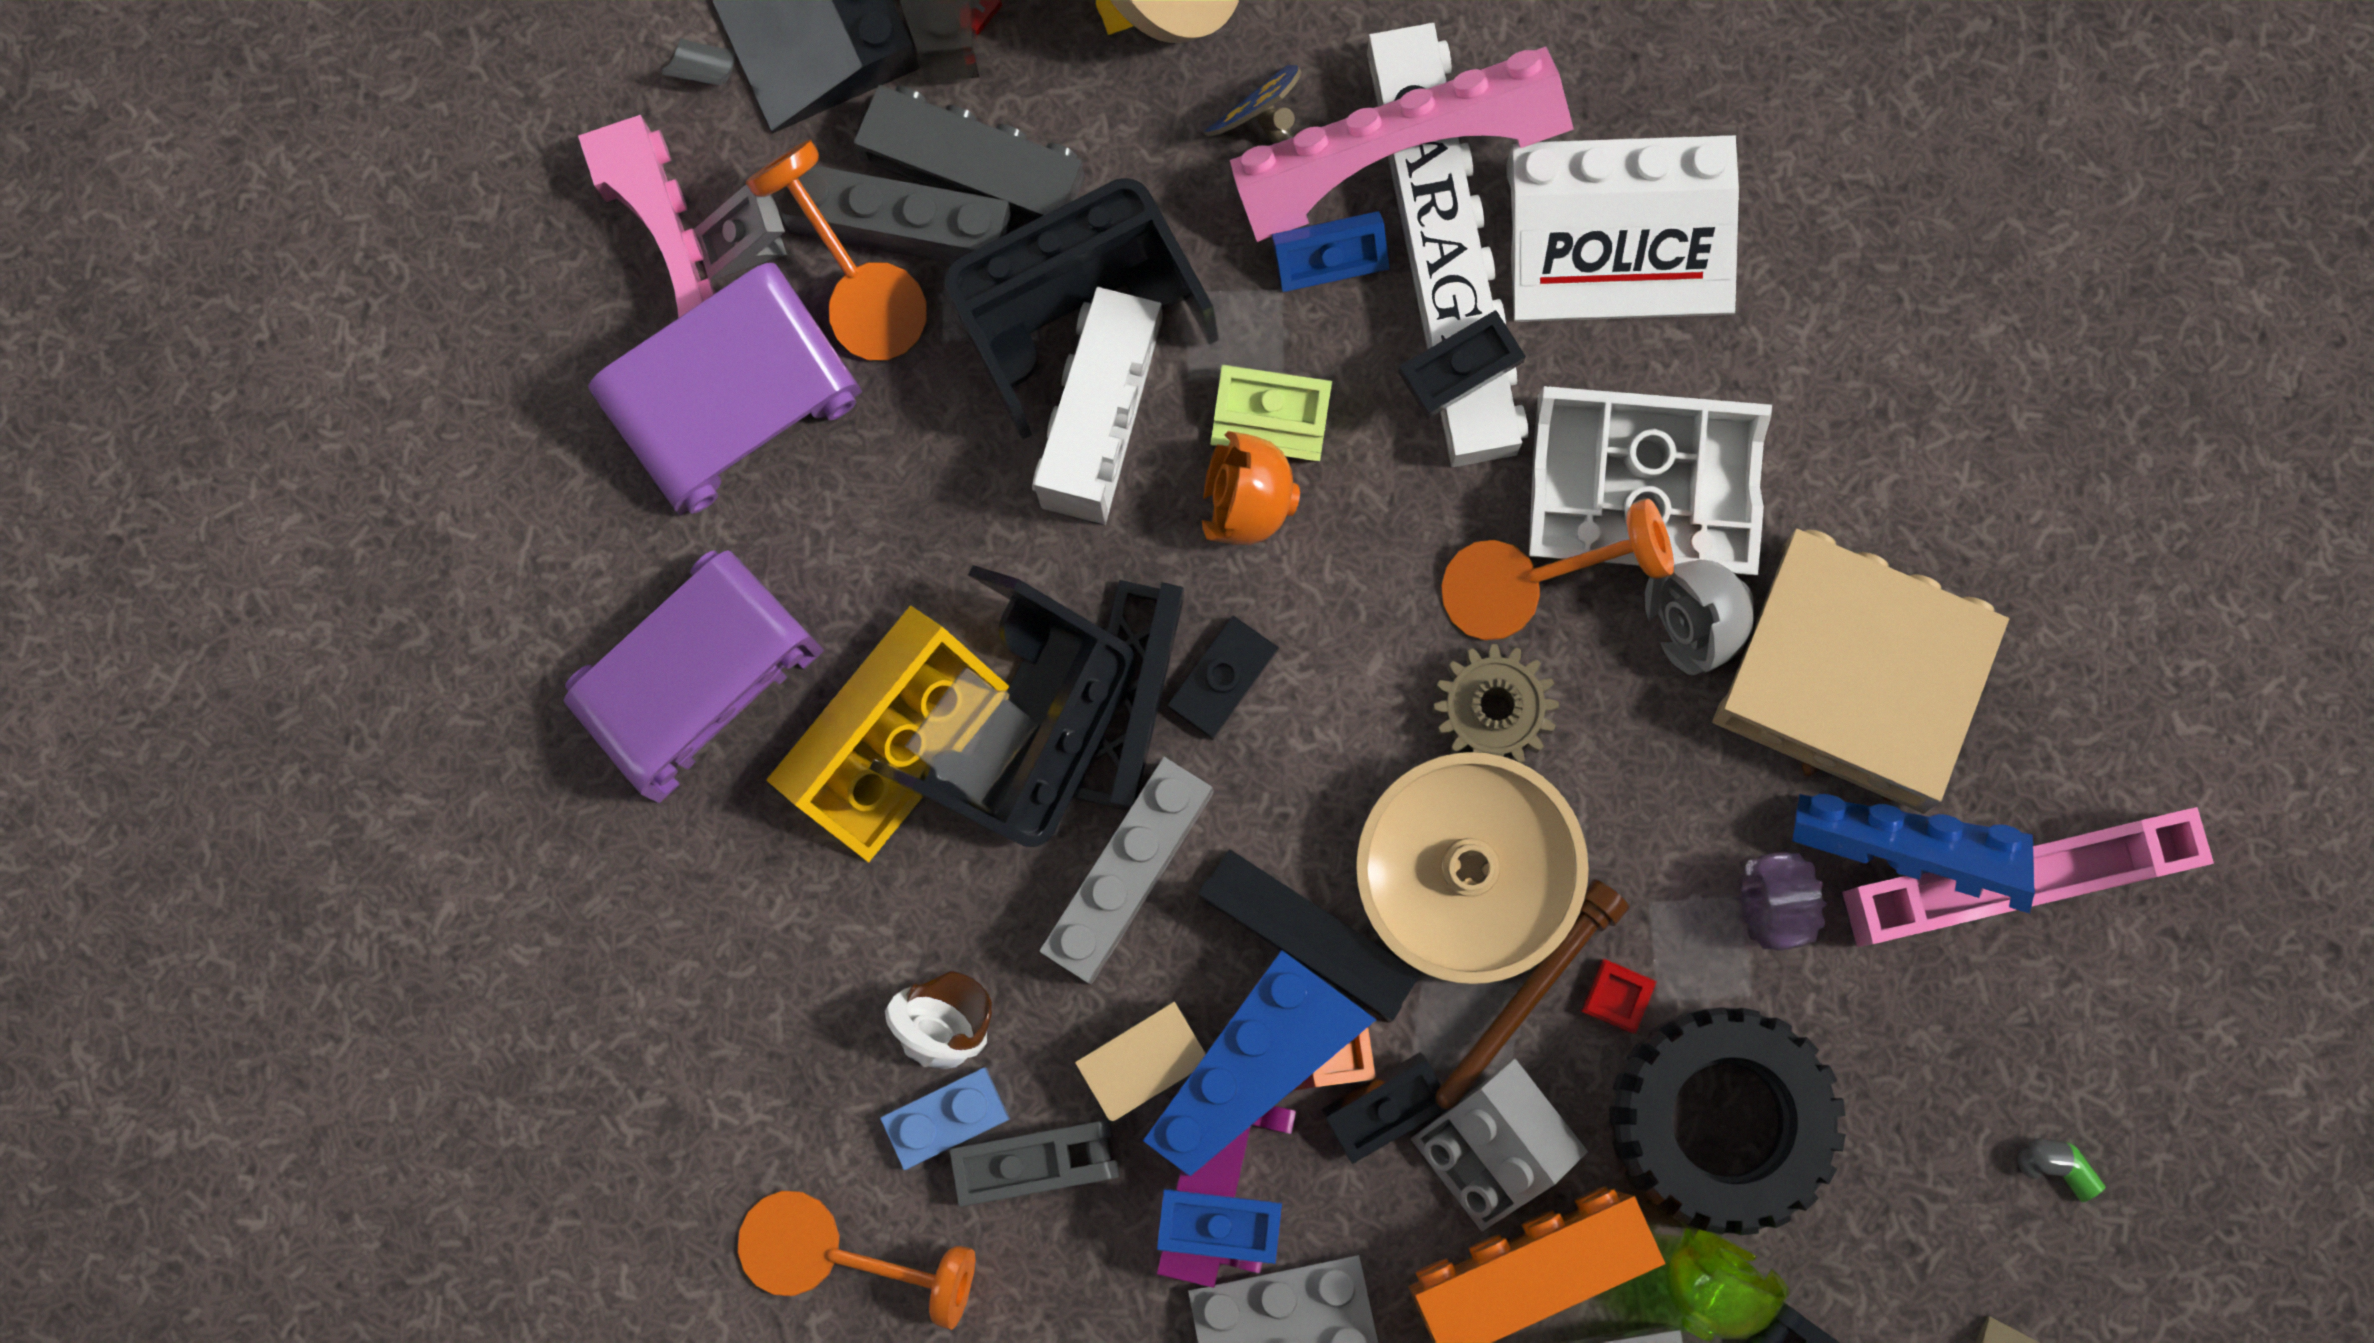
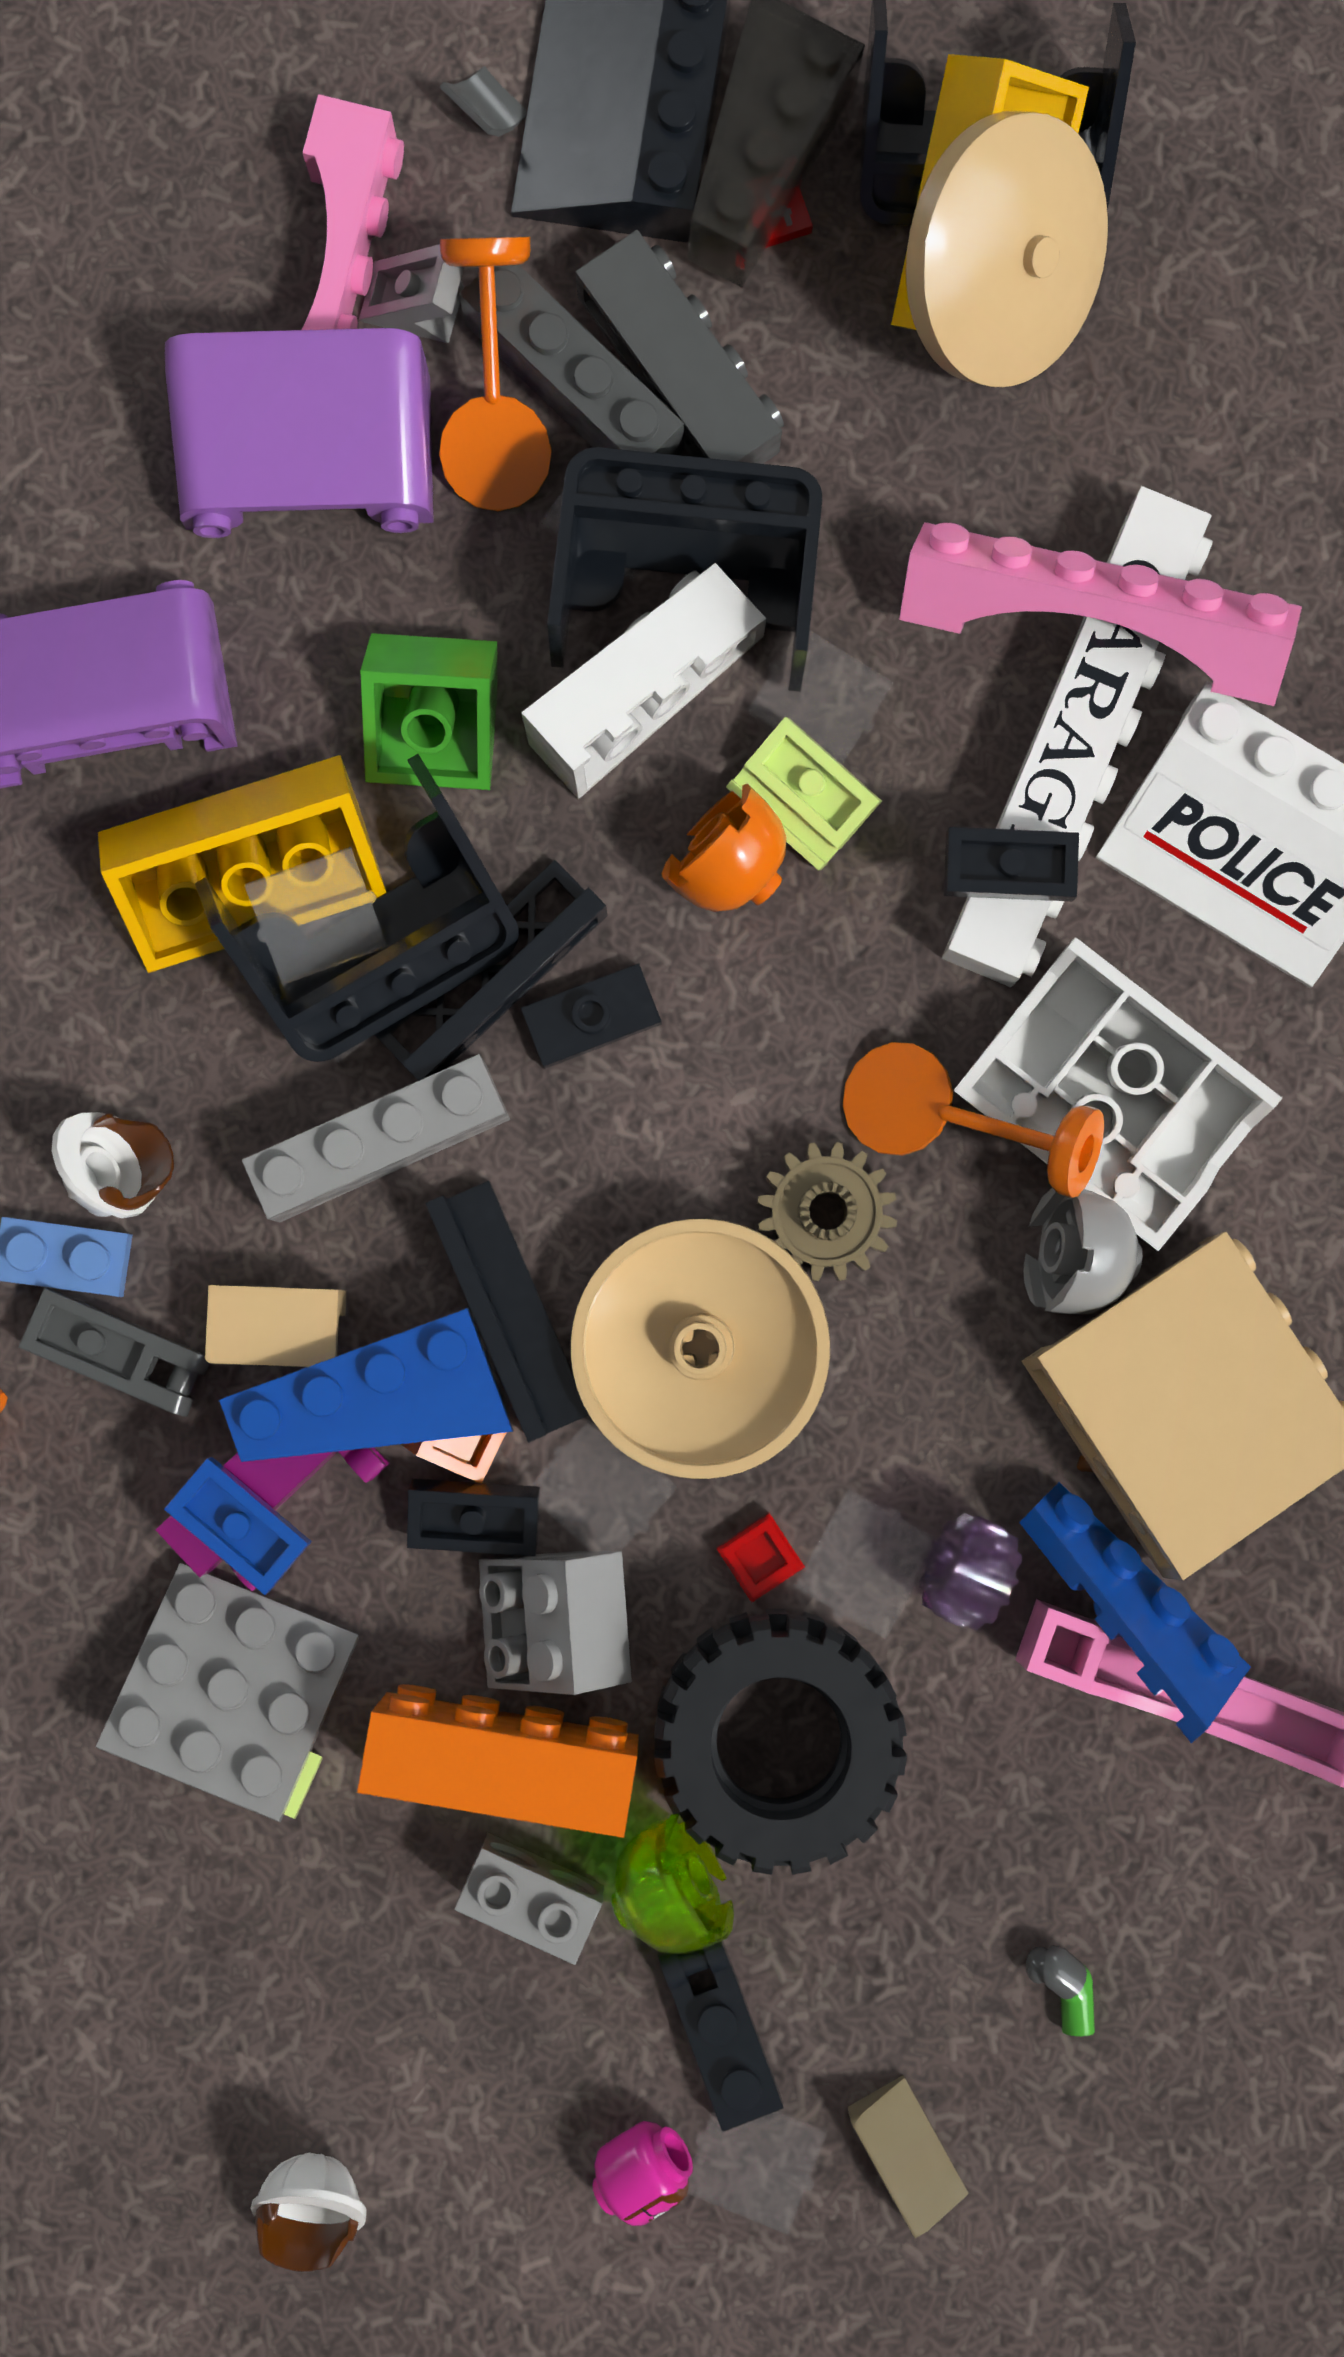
camera: 25 degrees right, 5 degrees up
(950, 524) = (431, 702): none -> bright green slope
(1260, 103) = (993, 510): shield -> none
(1330, 251) = (964, 675): blue plate -> none
(1600, 908) = (794, 1465): reddish brown piece -> none

